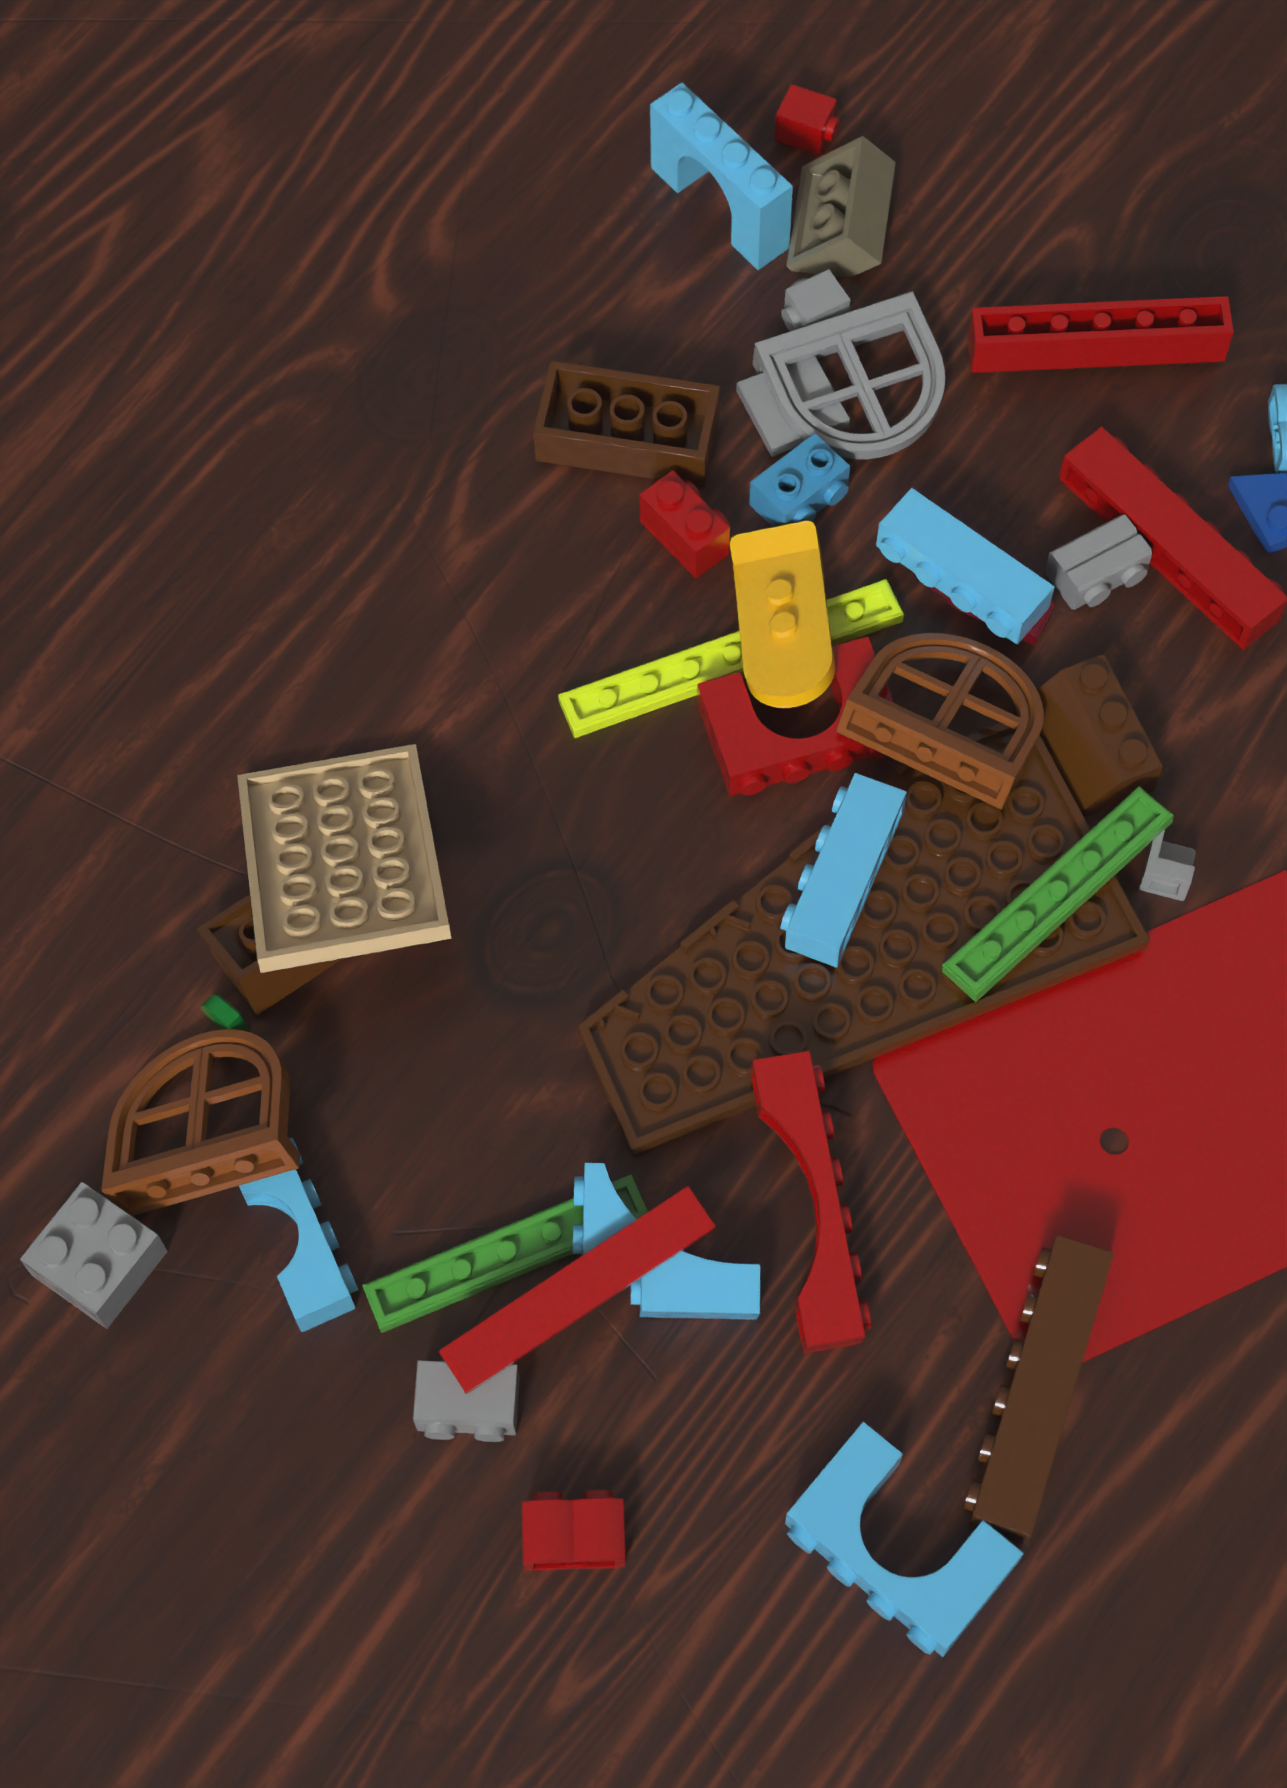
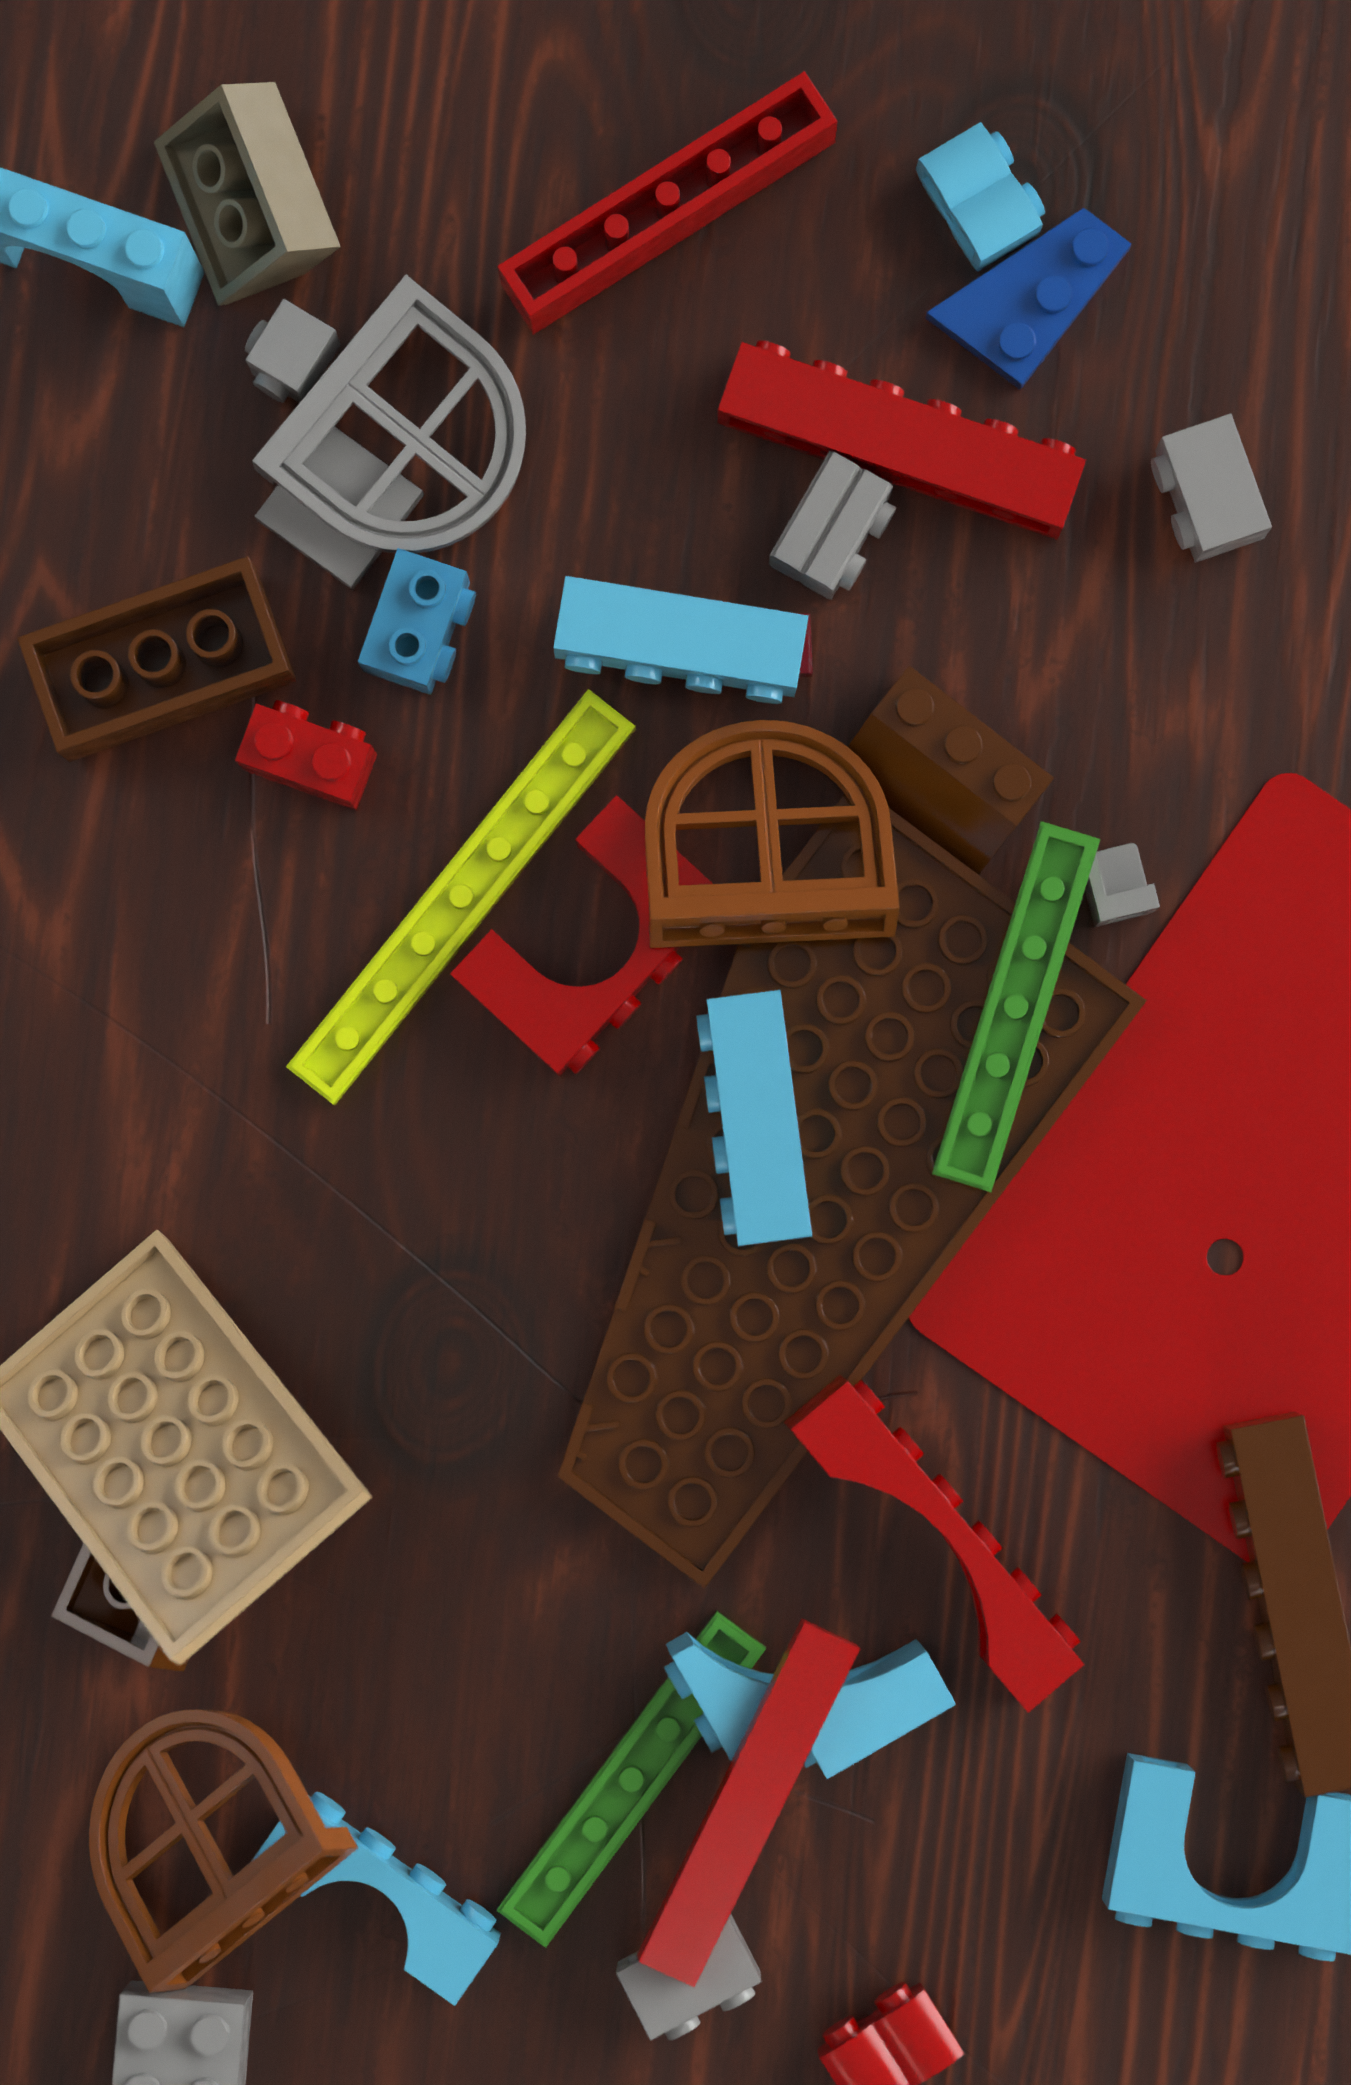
camera: 25 degrees left, 20 degrees up
(223, 1013) = (148, 1693): green tile -> none
(783, 614) = (497, 818): yellow piece -> none
(806, 120) = (124, 75): red brick -> none

